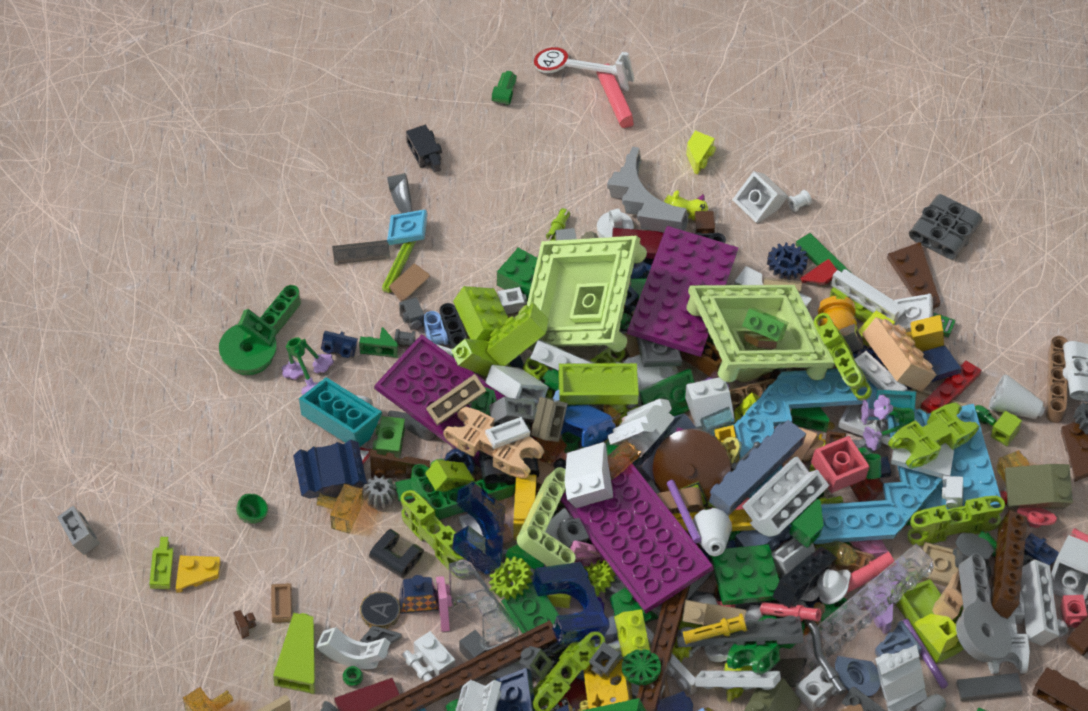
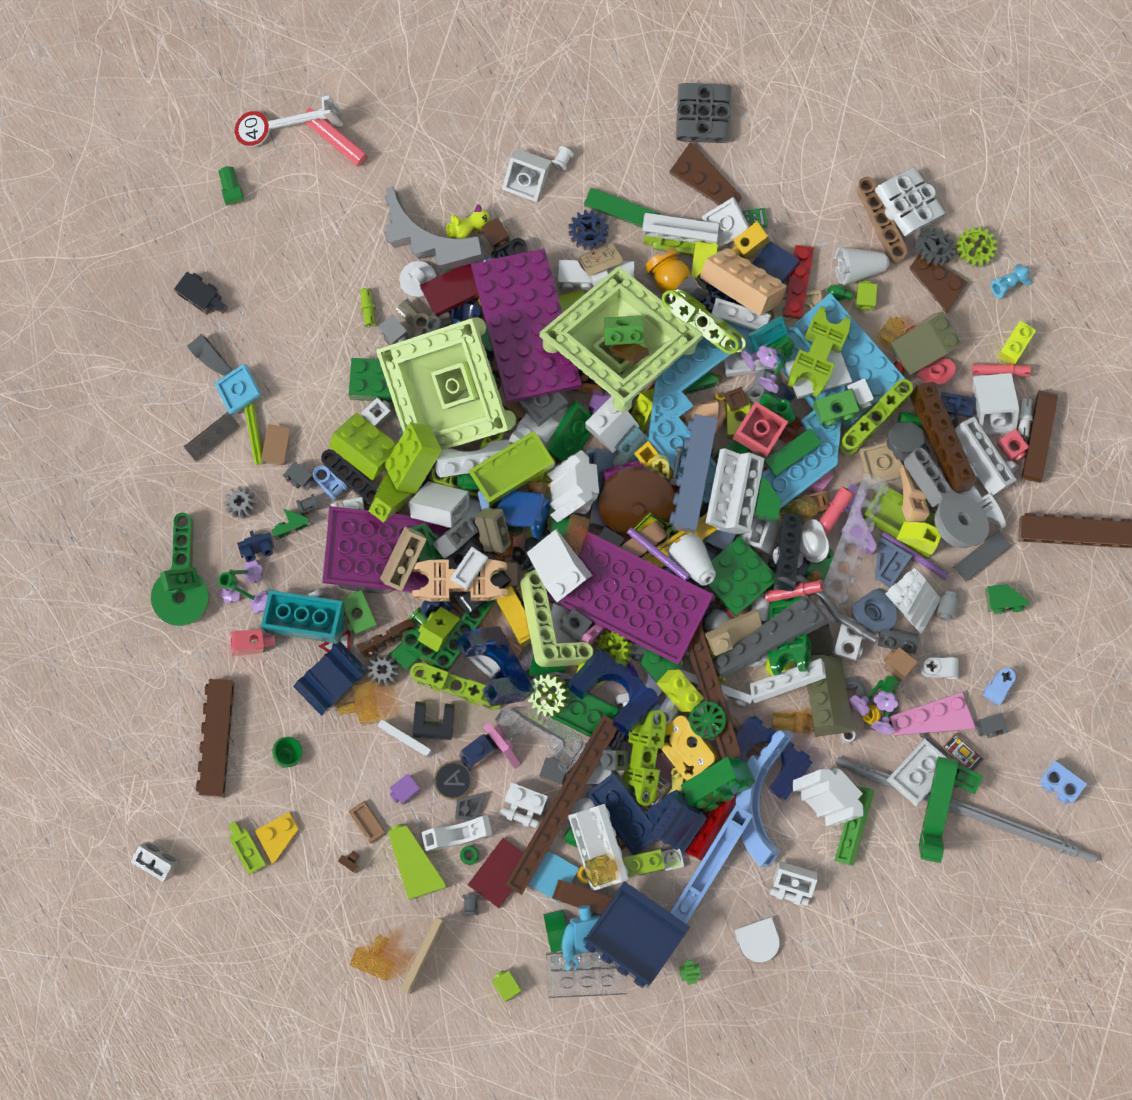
camera: 25 degrees left, 25 degrees up
(199, 468) = (216, 738): none -> reddish brown brick
(280, 409) = (241, 642): none -> coral torso
(332, 592) = (404, 789): none -> medium lavender brick
(349, 307) = (245, 506): none -> light grey gear
(361, 553) = (404, 738): none -> white tile
(604, 653) = (679, 739): dark grey brick -> none
(699, 149) = (443, 155): neon yellow slope -> none
(724, 627) = (754, 642): yellow pin -> none
(821, 274) = (626, 226): red tile -> none
(859, 501) = (792, 452): none -> green tile
(931, 484) = (844, 400): none -> bright green brick

